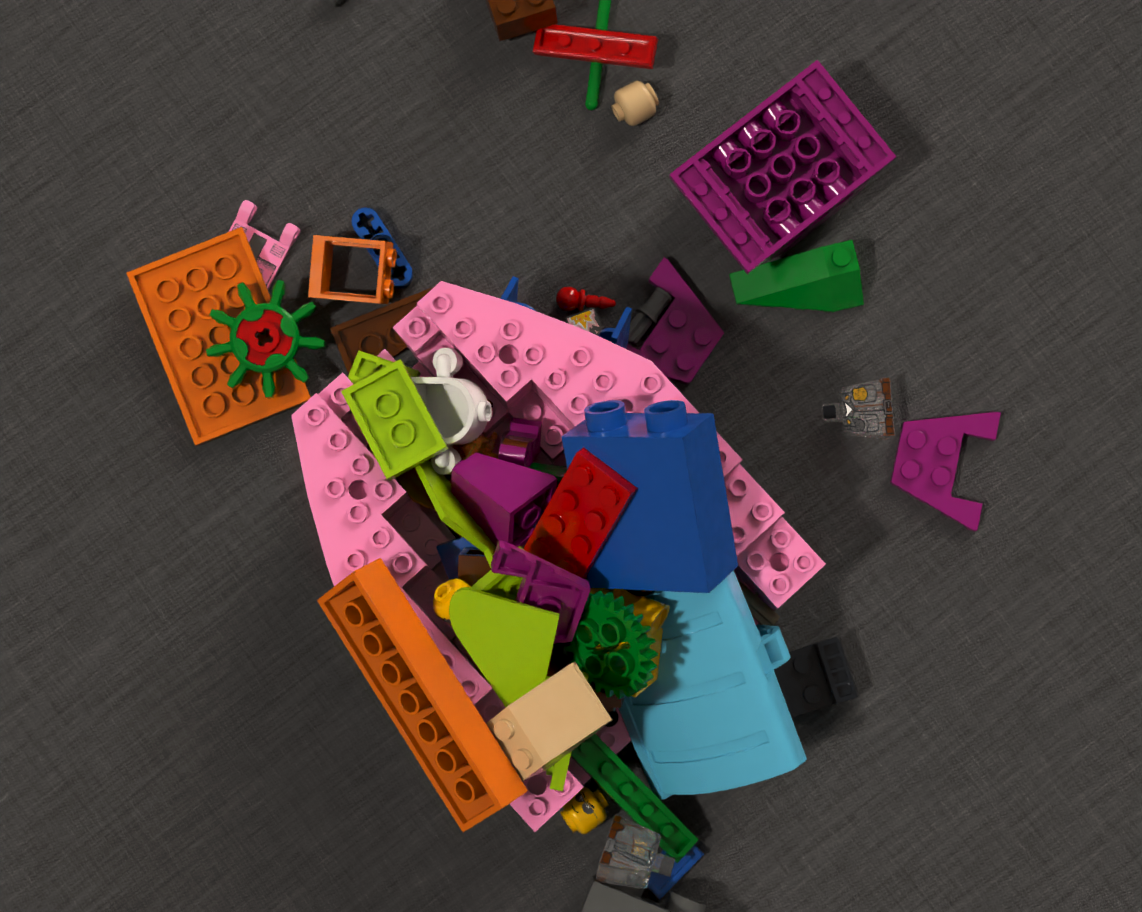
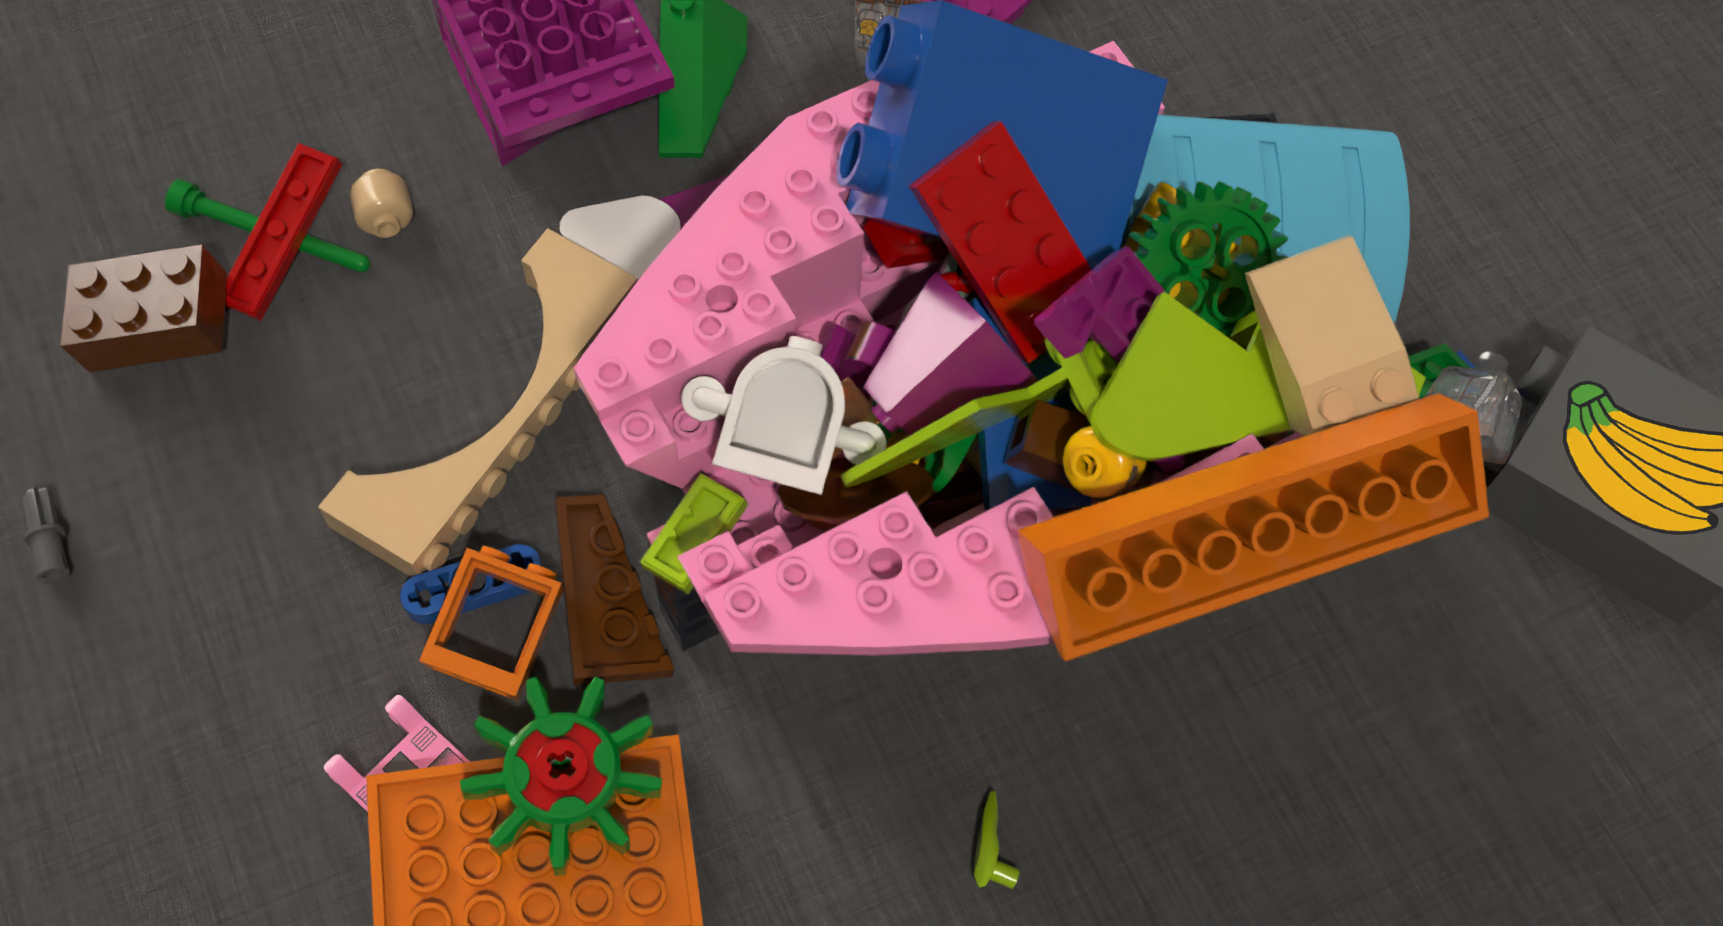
camera: 80 degrees left, 20 degrees down
(286, 597) = (987, 850): none -> lime bar
(394, 420) = (784, 477): lime plate -> none
(586, 257) = (421, 511): none -> tan arch
(652, 270) = (623, 231): none -> white sticker

